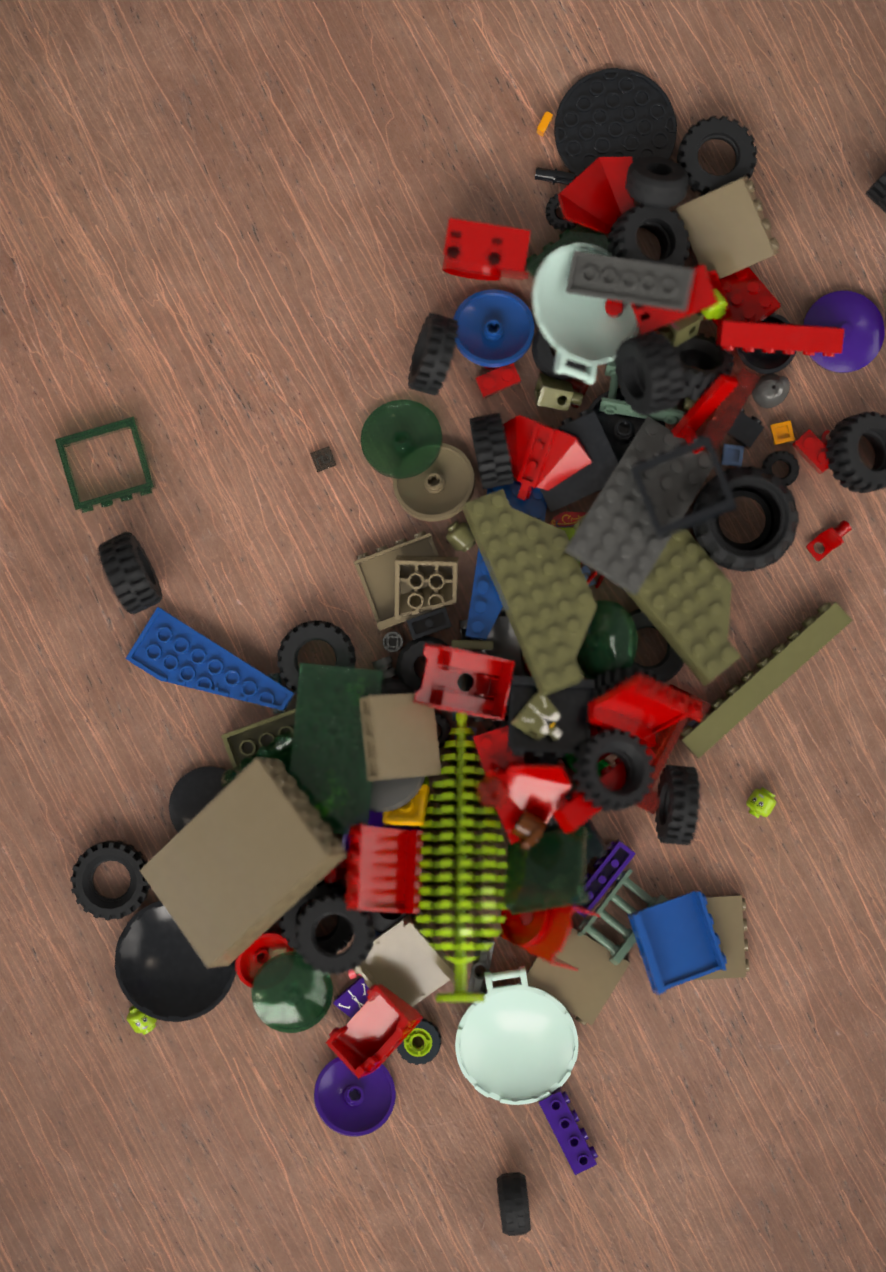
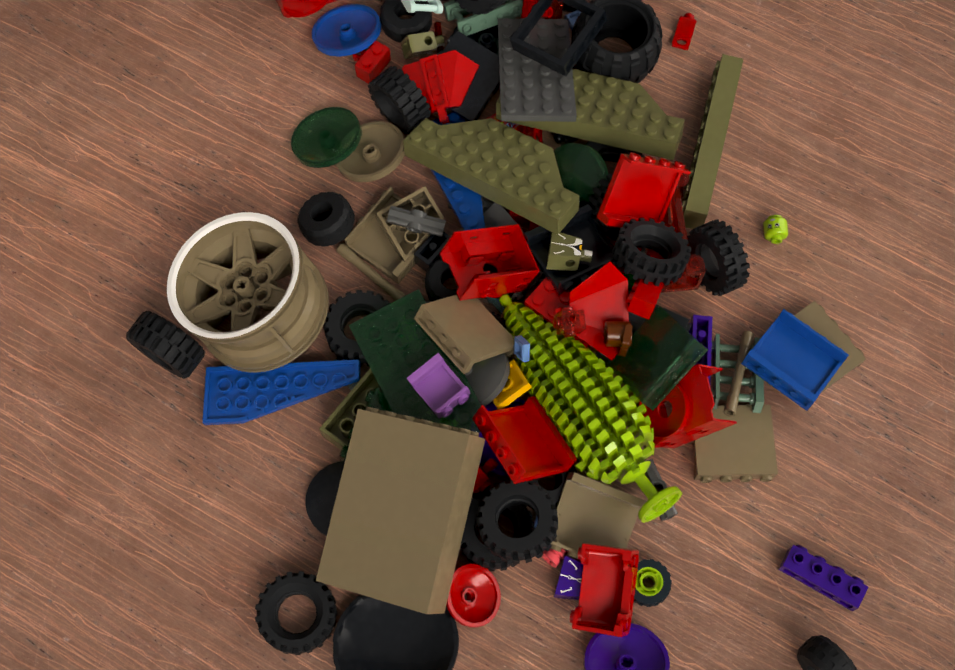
camera: 30 degrees left, 20 degrees down
(124, 495) = (81, 268): clear green window -> none
(195, 527) = (224, 260): none -> dark tan wheel
(291, 993) = (514, 609): clear green dish -> none
(323, 459) = (275, 189): clear smoke tile -> none
(342, 777) = (439, 386): none -> medium lavender panel
(346, 512) = (326, 219): none -> black tyre
(352, 578) = (351, 257): none -> dark tan piece
(393, 639) = (415, 284): dark grey wheel -> none
(426, 594) = (416, 221): none -> dark grey piece
(433, 354) = (312, 60): black tyre -> none
(438, 784) = (522, 348): none -> medium blue tile
(460, 536) = (416, 178): olive head -> none
(516, 1041) = (729, 527): light aqua dish -> none
(644, 899) = (732, 399): none -> dark tan piece

